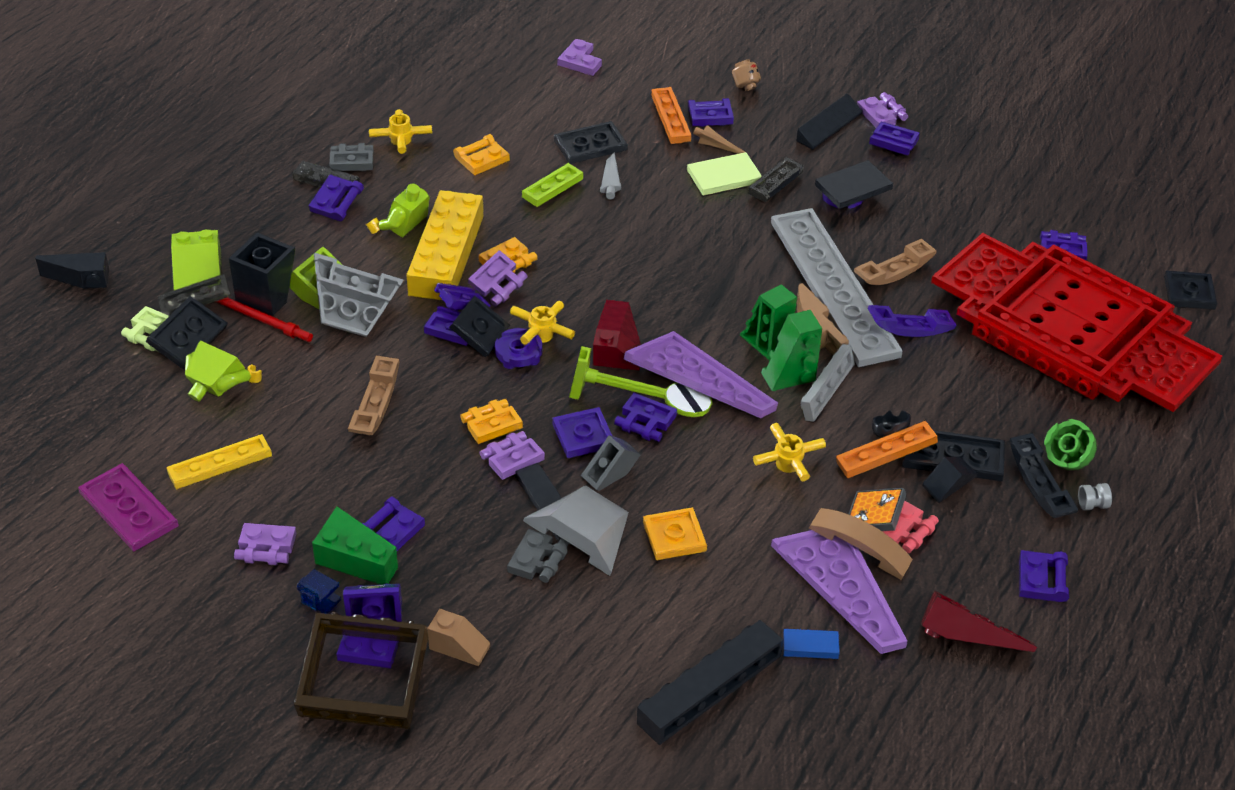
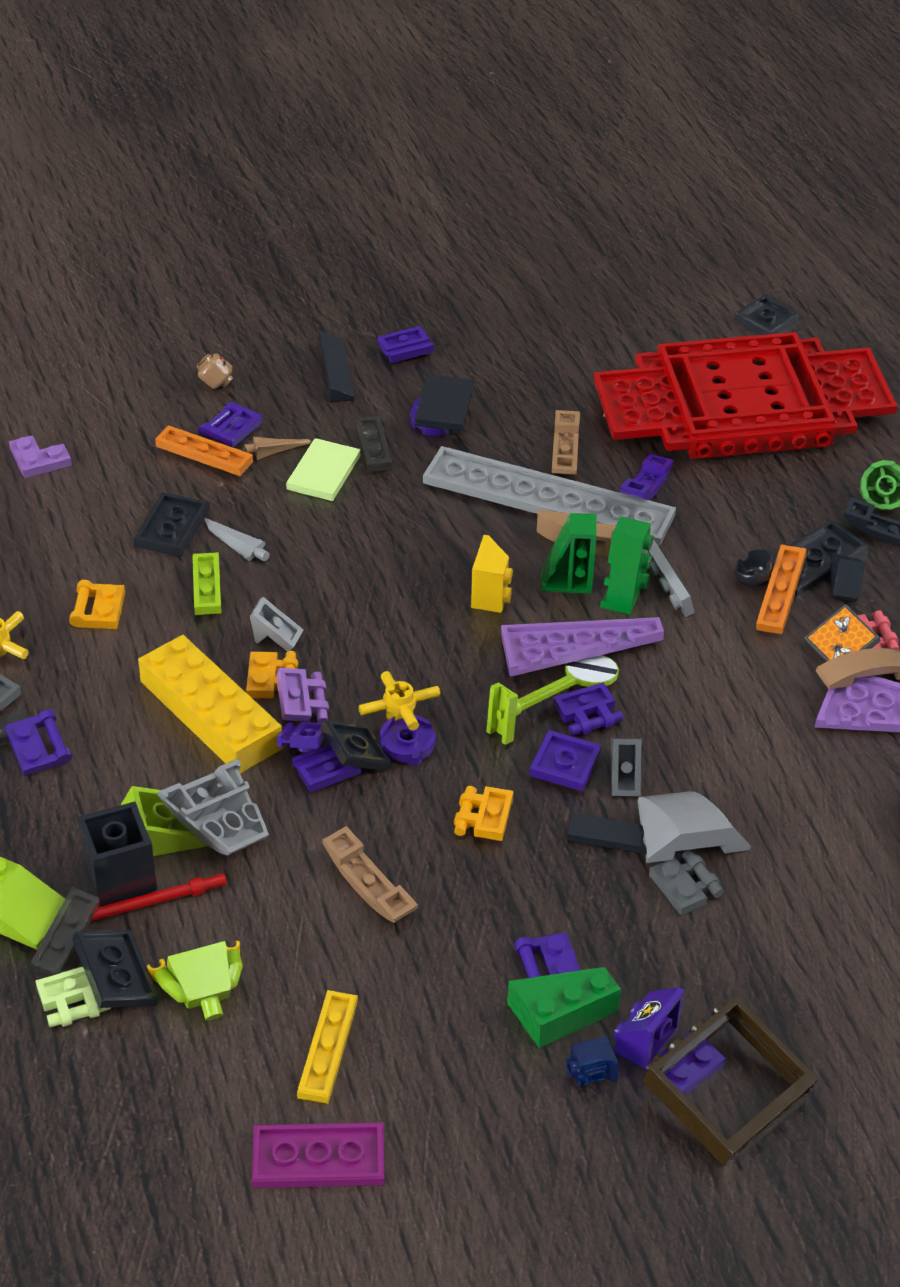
camera: 50 degrees left, 0 degrees up
(265, 543) = (476, 1064): medium lavender plate -> none
(405, 212) = (131, 702): lime torso -> none
(457, 638) = (745, 985): medium nougat slope -> none
(512, 454) = (552, 827): medium lavender plate -> none
(544, 230) = (272, 622): none -> light grey slope
(615, 336) = (459, 667): dark red wedge -> none
(674, 533) = (747, 776): light orange plate -> none
(704, 296) = (491, 577): none -> yellow slope
(789, 452) = (727, 646): yellow bar -> none
(878, 110) = (358, 333): medium lavender plate -> none
(1070, 242) = (645, 340): dark purple plate -> none

